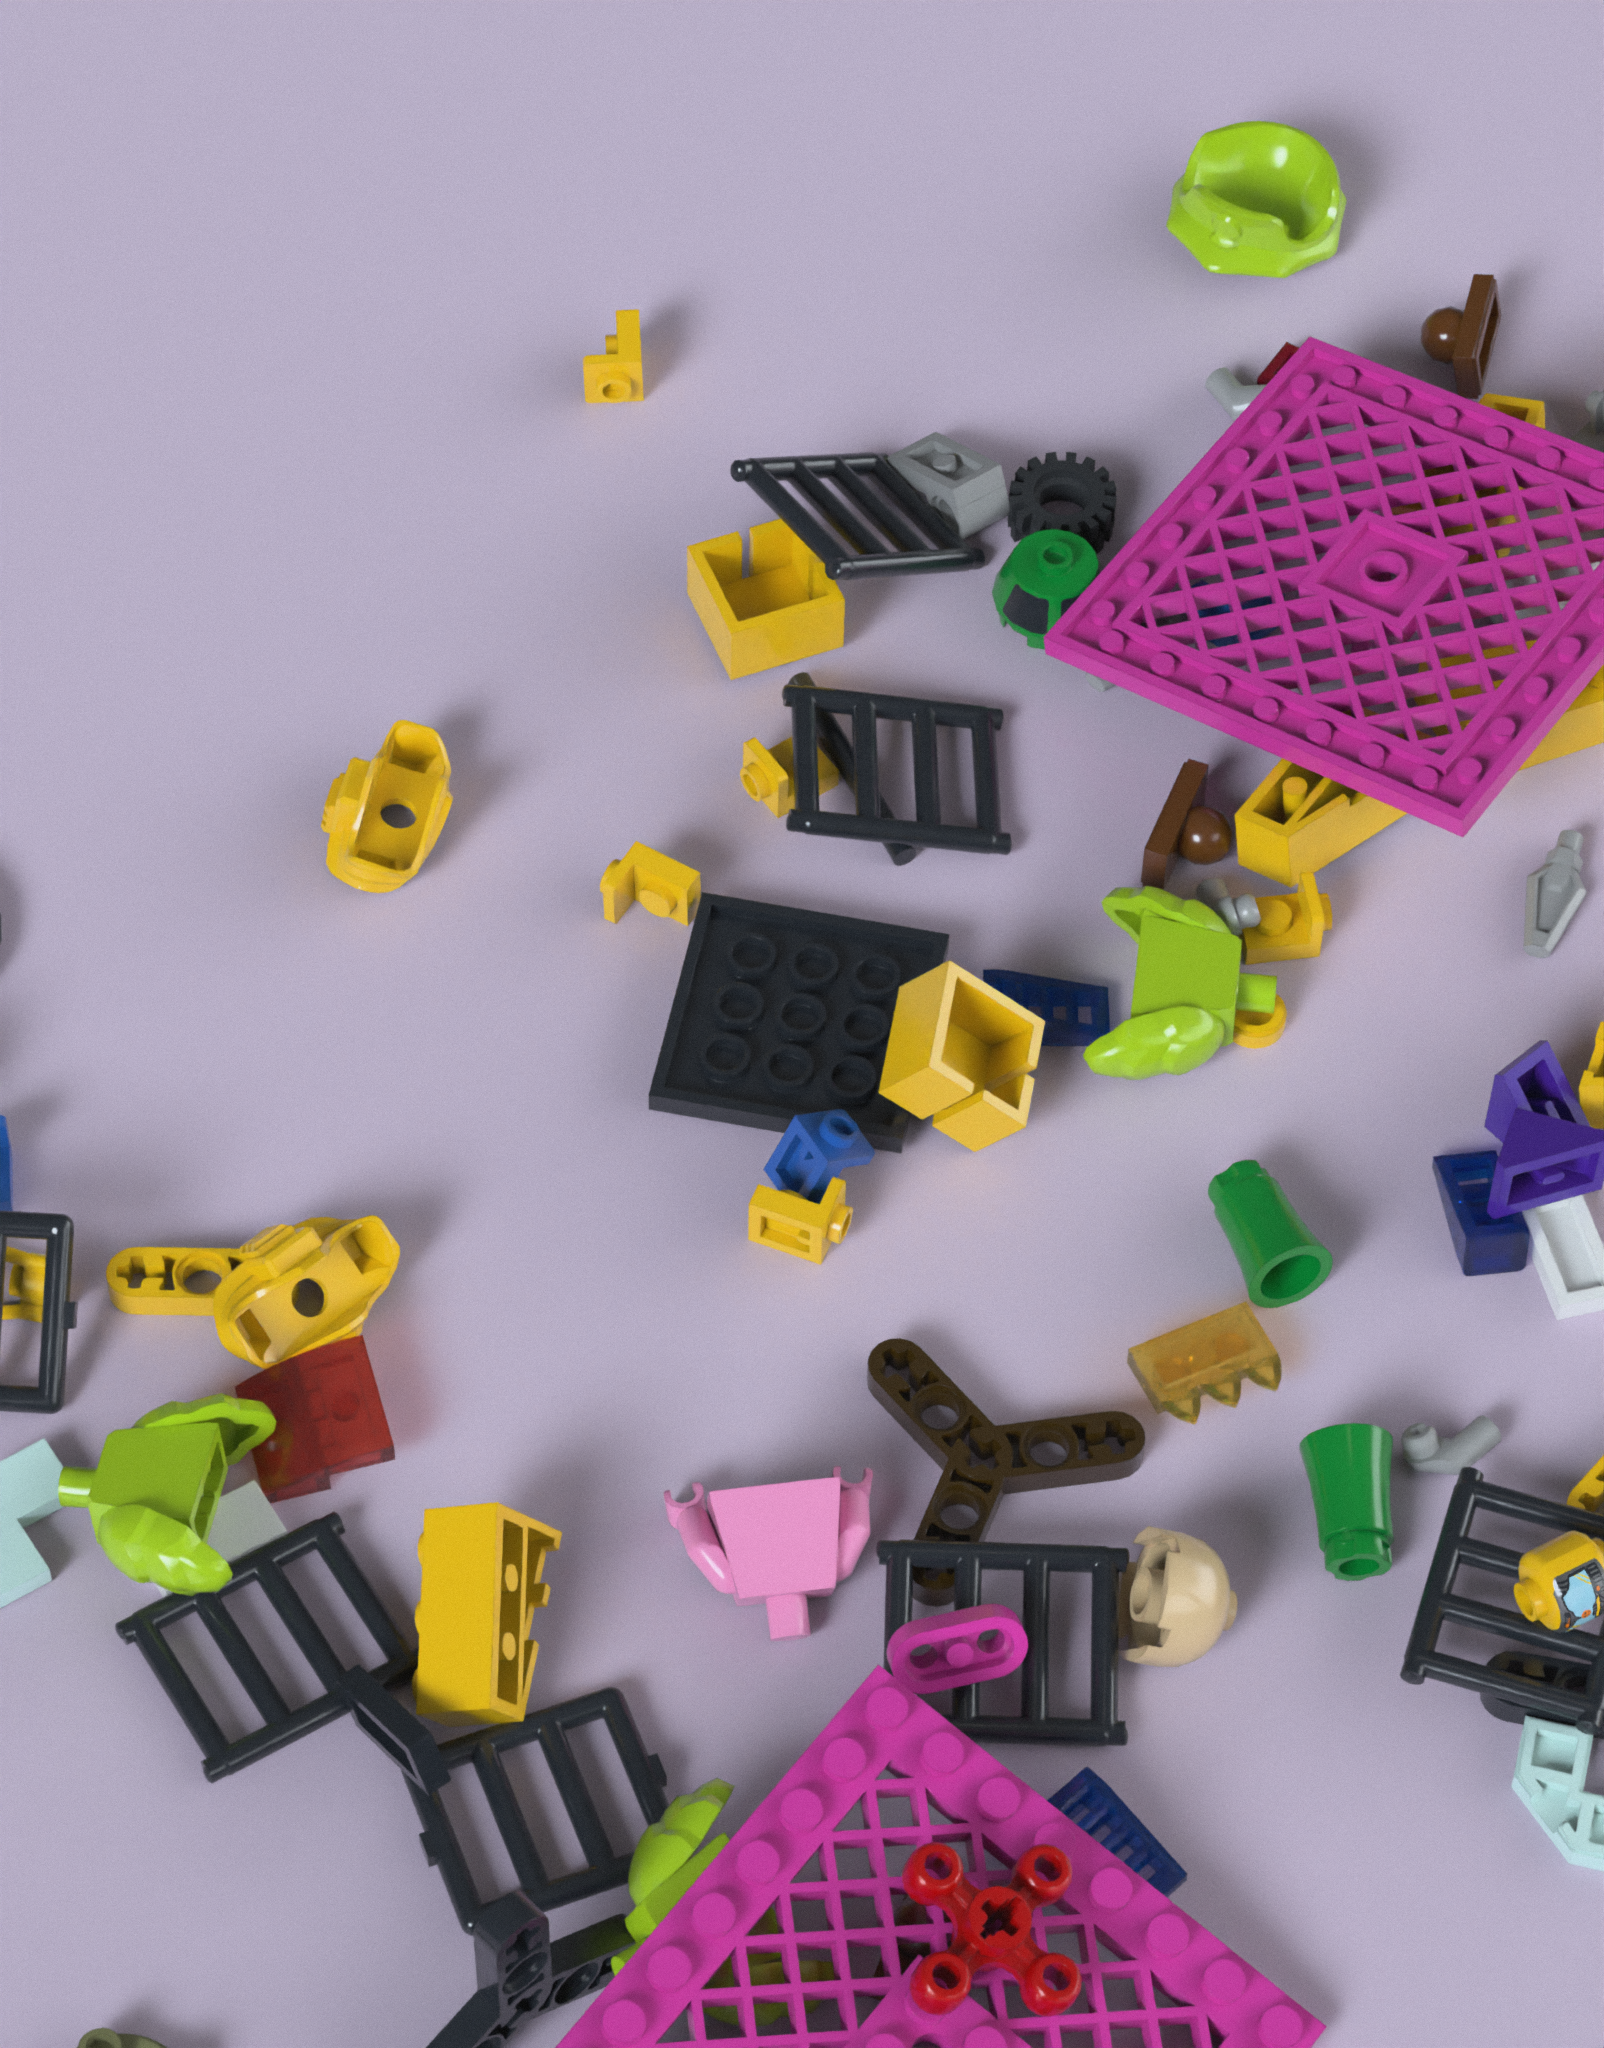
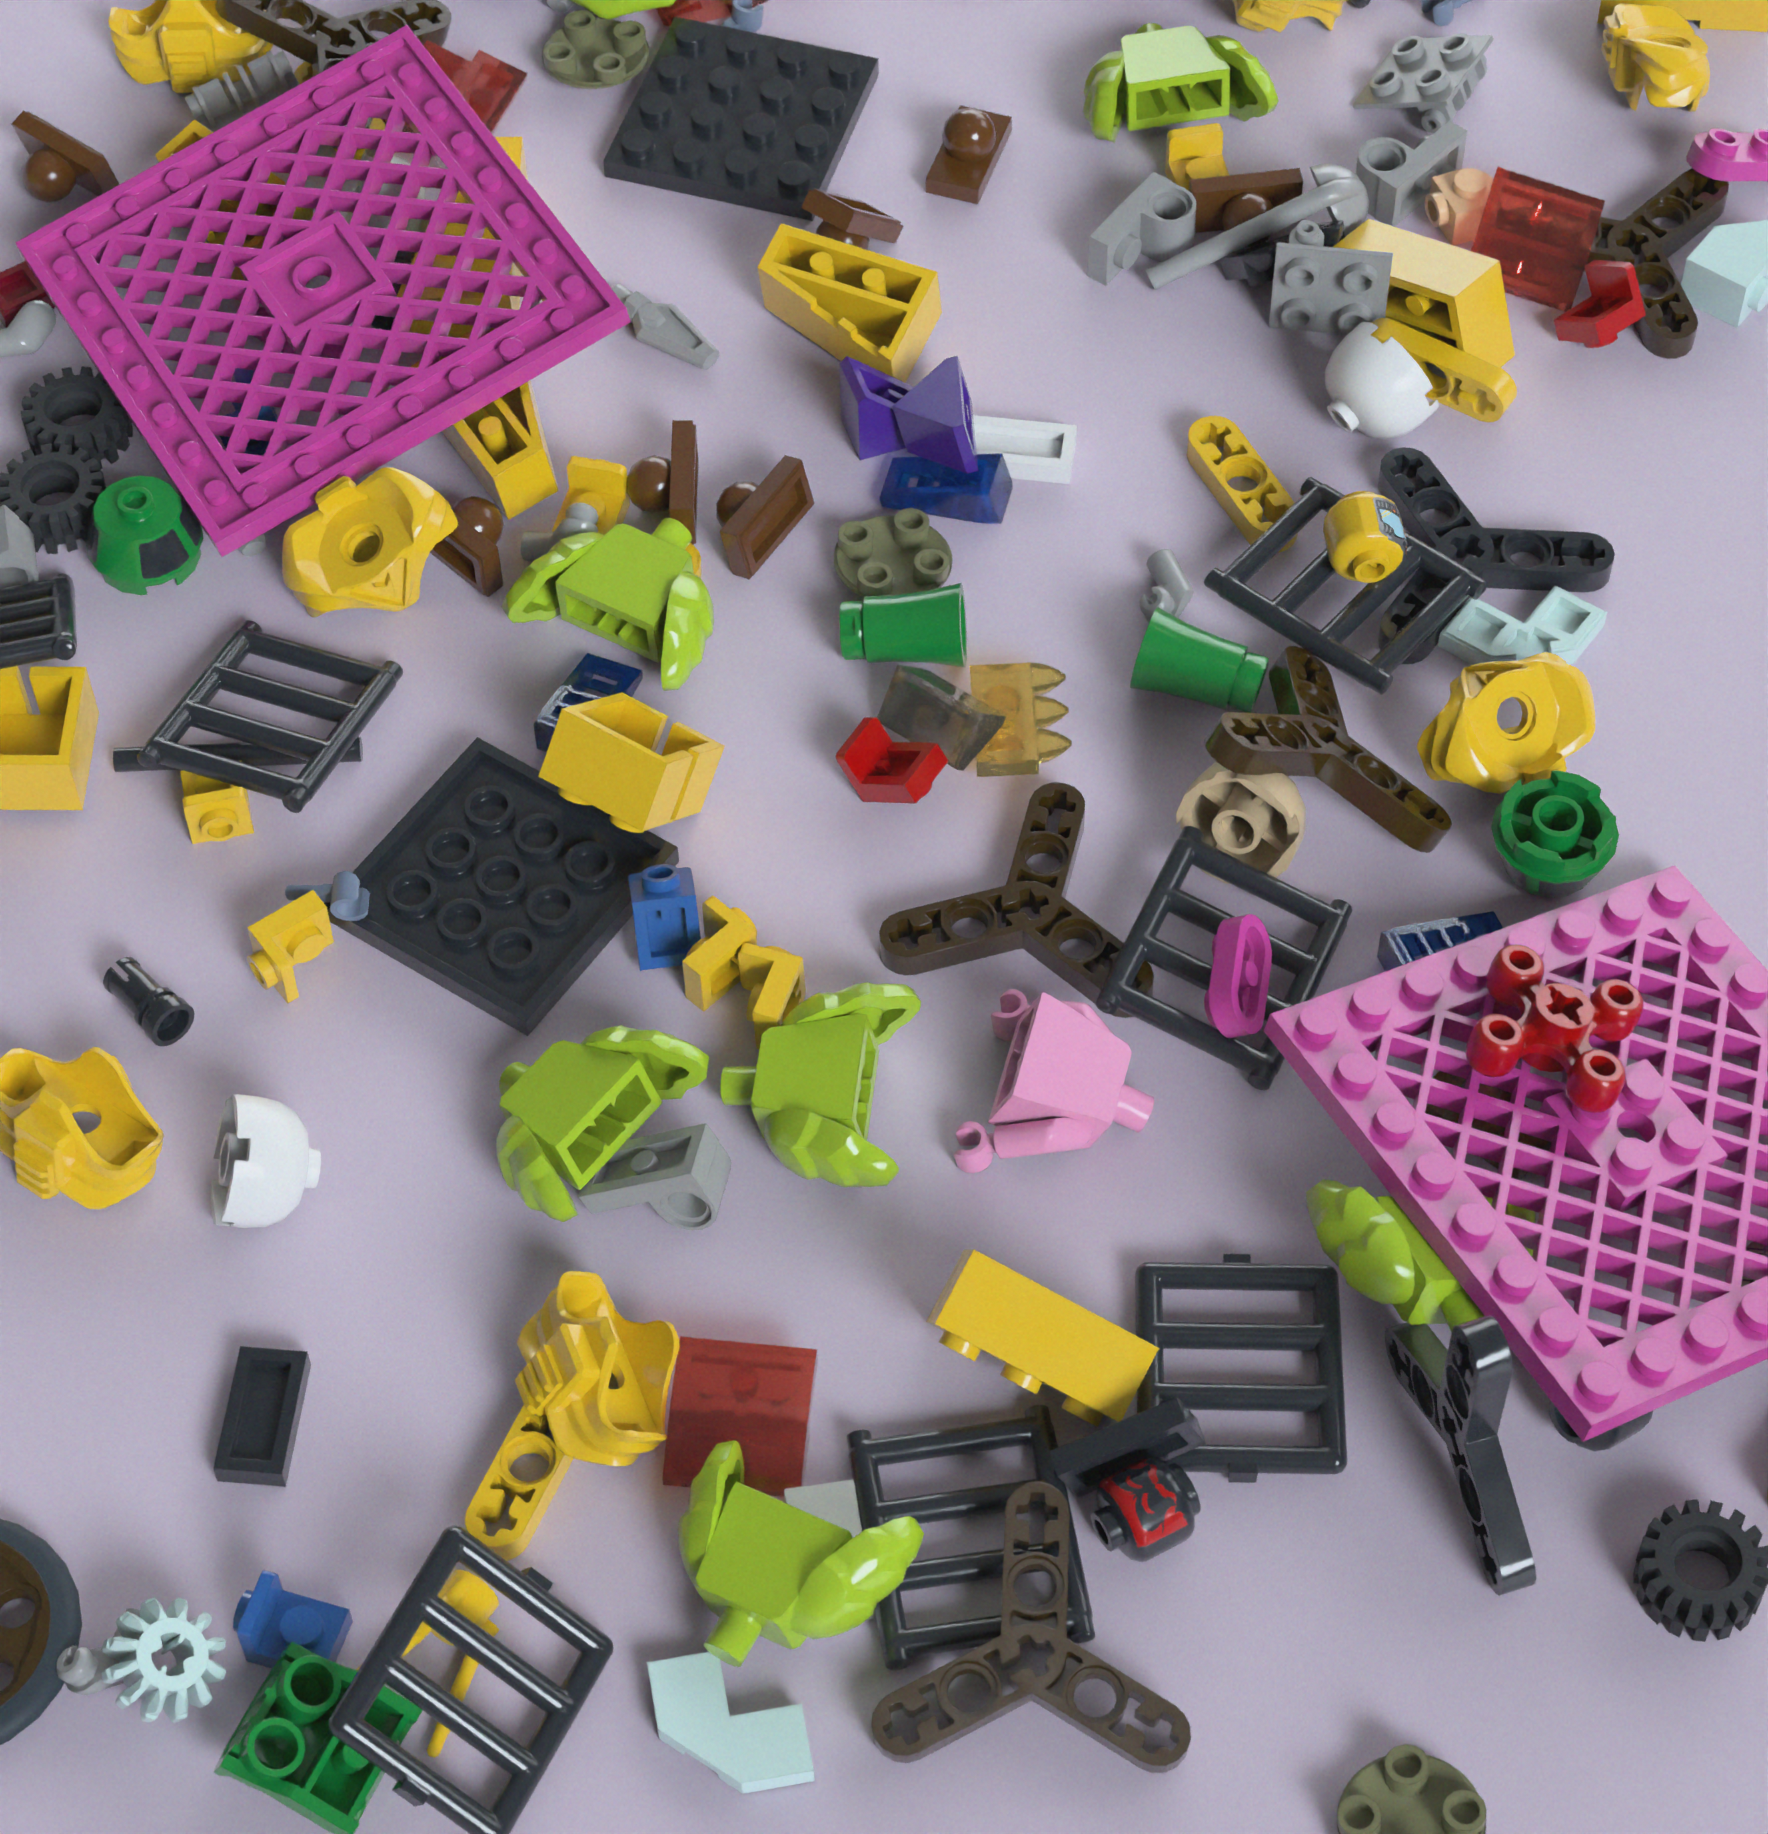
camera: 65 degrees left, 0 degrees up
(153, 1759) = (1065, 1668): none -> dark brown piece
(174, 1069) = (262, 1416): none -> black tile
(349, 1774) = (1145, 1509): none -> black head
(405, 955) = (261, 1163): none -> white cylinder
(532, 1264) = (673, 1170): none -> light grey plate
(541, 820) = (155, 1008): none -> black pin
(558, 1168) = (583, 1105): none -> lime torso
(689, 1350) = (819, 1083): none -> lime torso
(708, 902) = (346, 897): none -> sand blue hand
(773, 1284) = (774, 982): none -> yellow bracket
(1089, 1274) = (888, 769): none -> red bracket
(1138, 736) = (365, 543): none -> yellow piece
(1146, 461) = (72, 397): none -> black tyre
(1173, 1297) = (935, 711): none -> clear smoke slope
(1256, 1621) = (1313, 741): none -> dark brown piece
(1285, 1884) = (1554, 834): none -> green cone
(1345, 976) = (666, 484): none -> reddish brown tile
(1345, 1062) = (762, 515): none -> reddish brown tile
(1358, 1193) = (892, 555): none -> olive dish
(1392, 1834) = (1472, 749): none -> yellow piece

